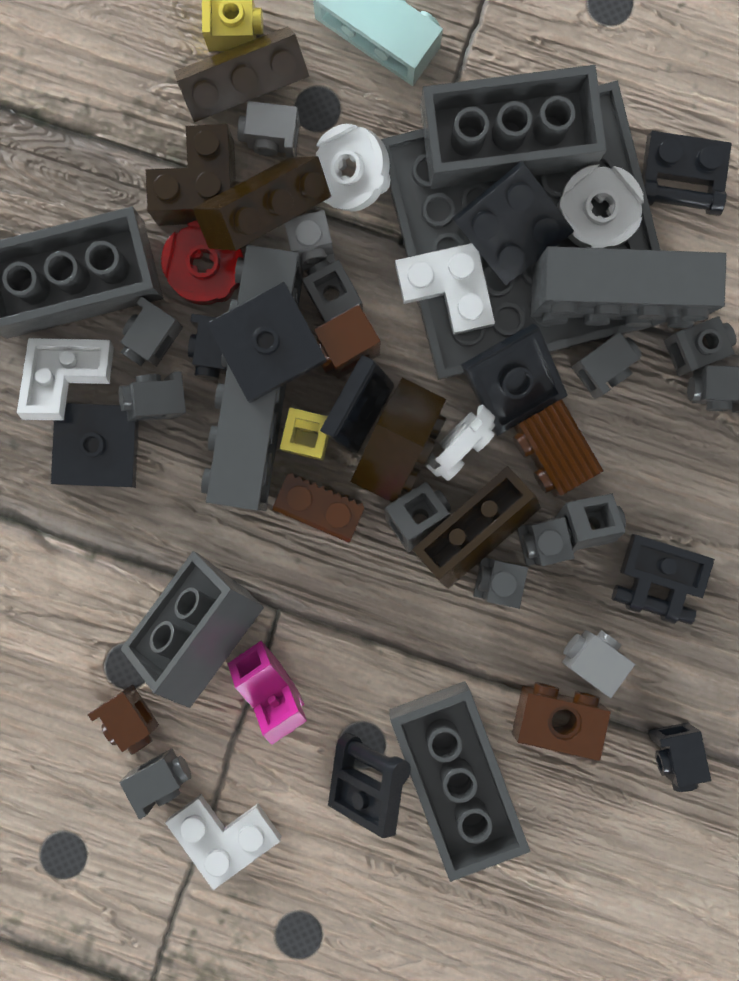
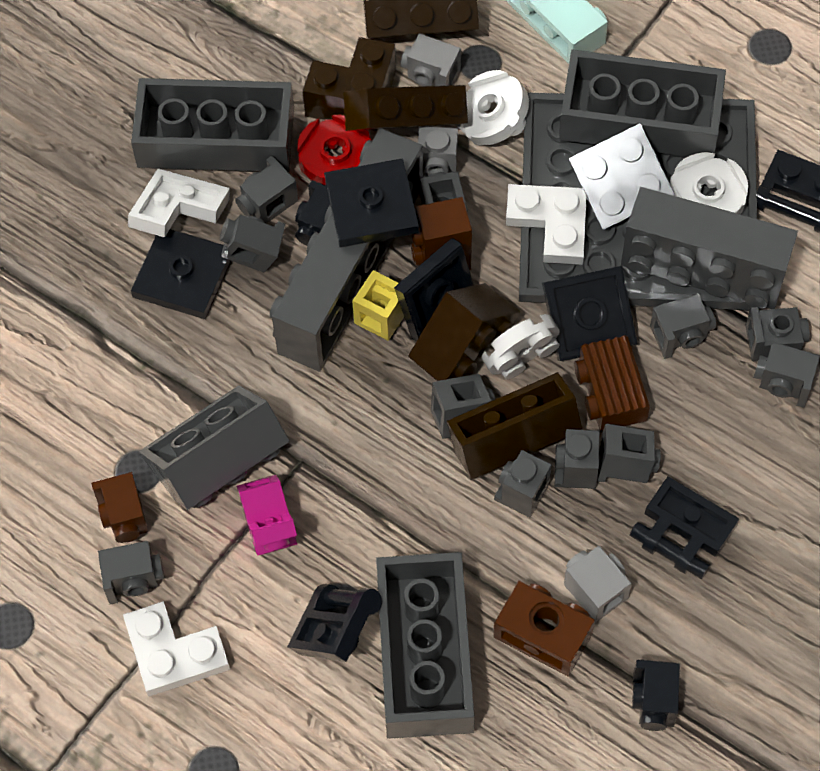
camera: 20 degrees right, 25 degrees down
(318, 507) = (371, 372): reddish brown brick -> none

